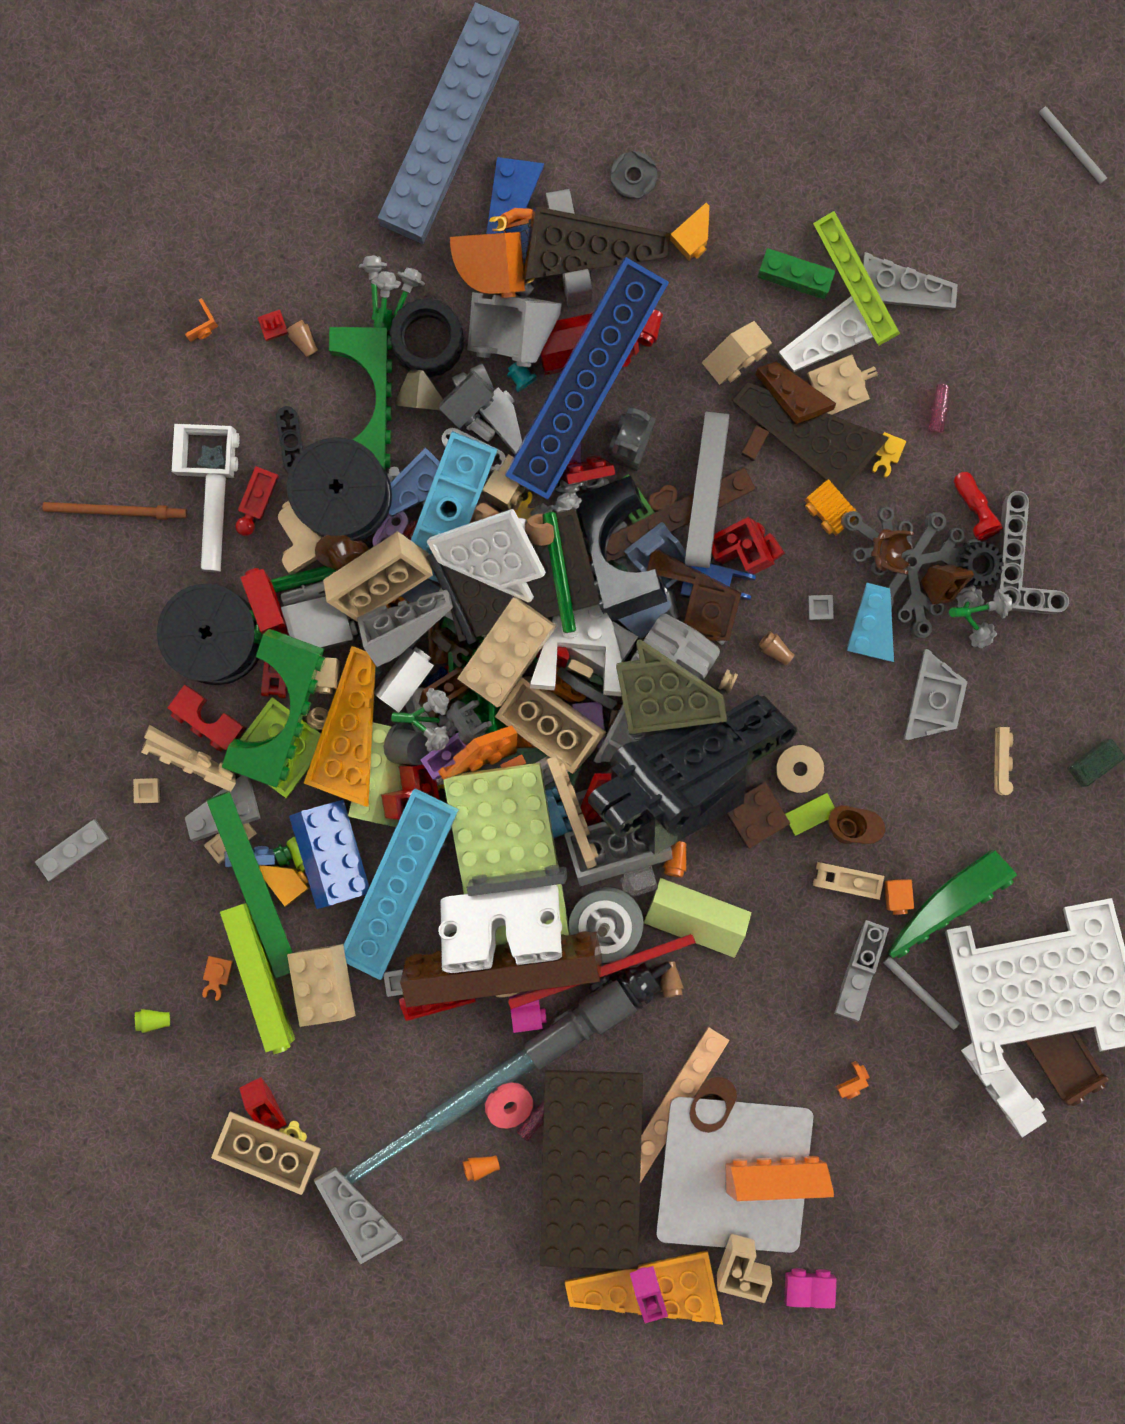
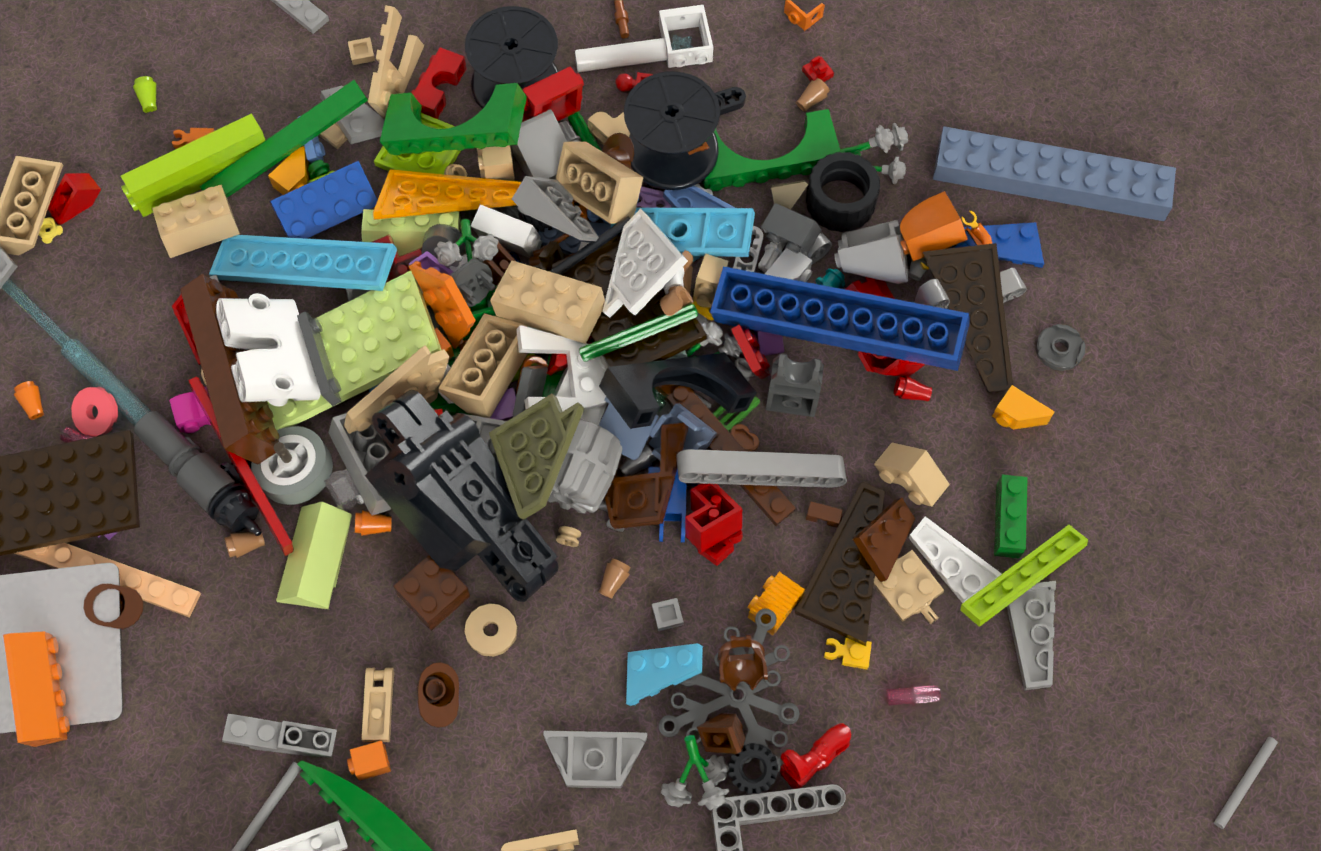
camera: 75 degrees right, 20 degrees down
(580, 669) = (547, 379): tan tile -> none
(810, 814) = (443, 648): lime tile -> none
(851, 1087) = (148, 753): orange bracket -> none

